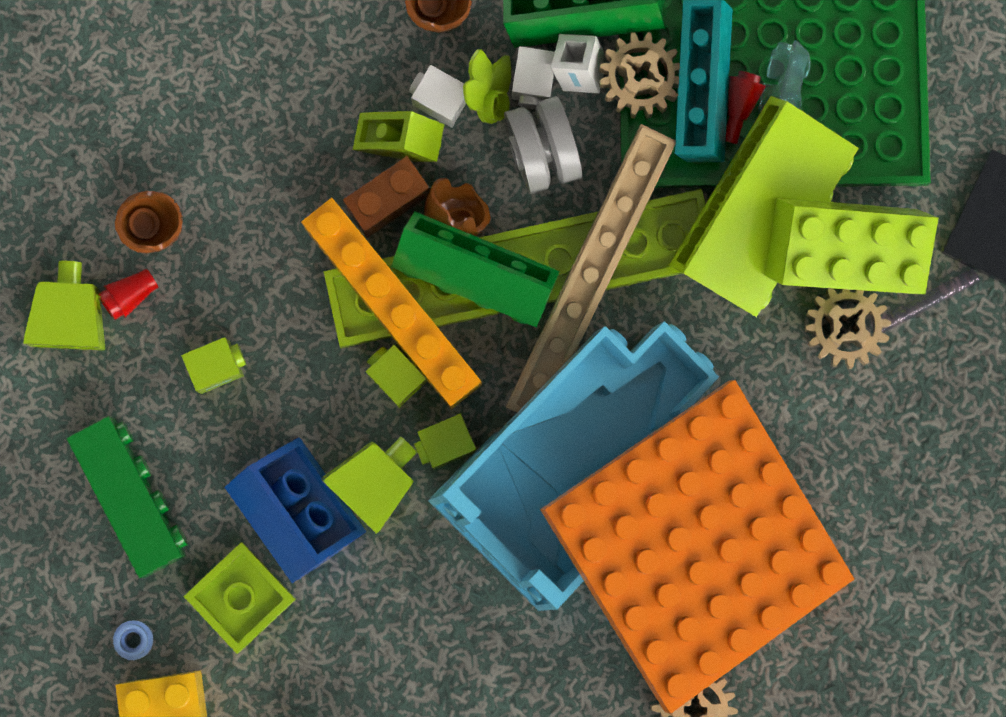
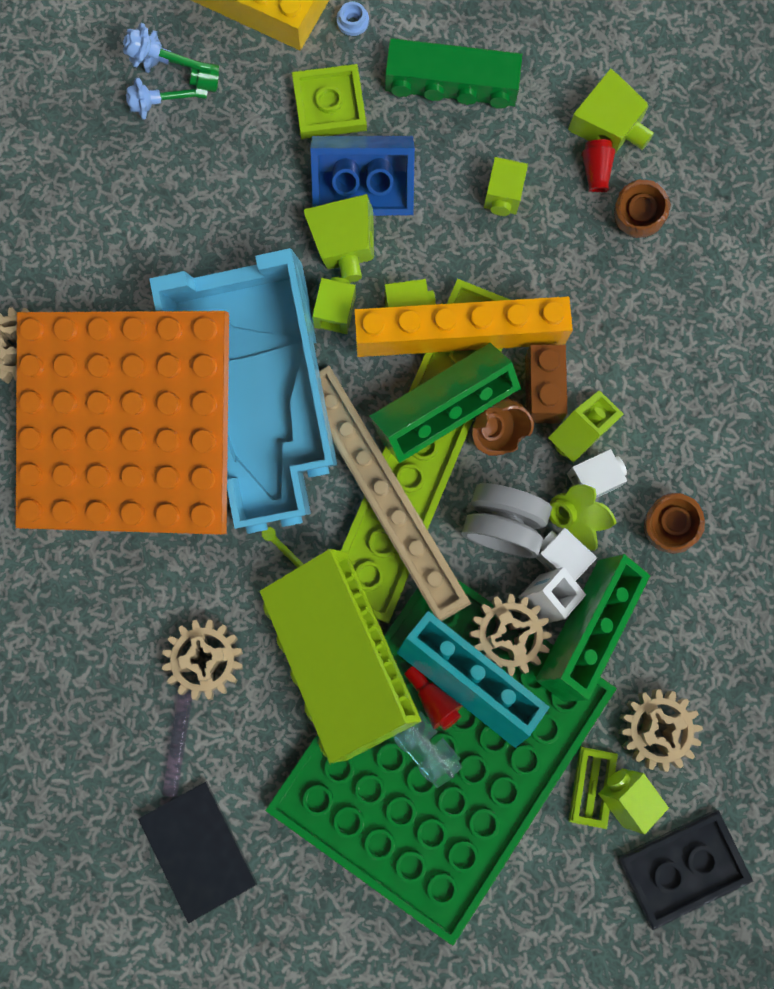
camera: 125 degrees right, 5 degrees down
(701, 319) = (270, 535): none -> lime hinge
(850, 246) = (257, 701): lime brick -> none

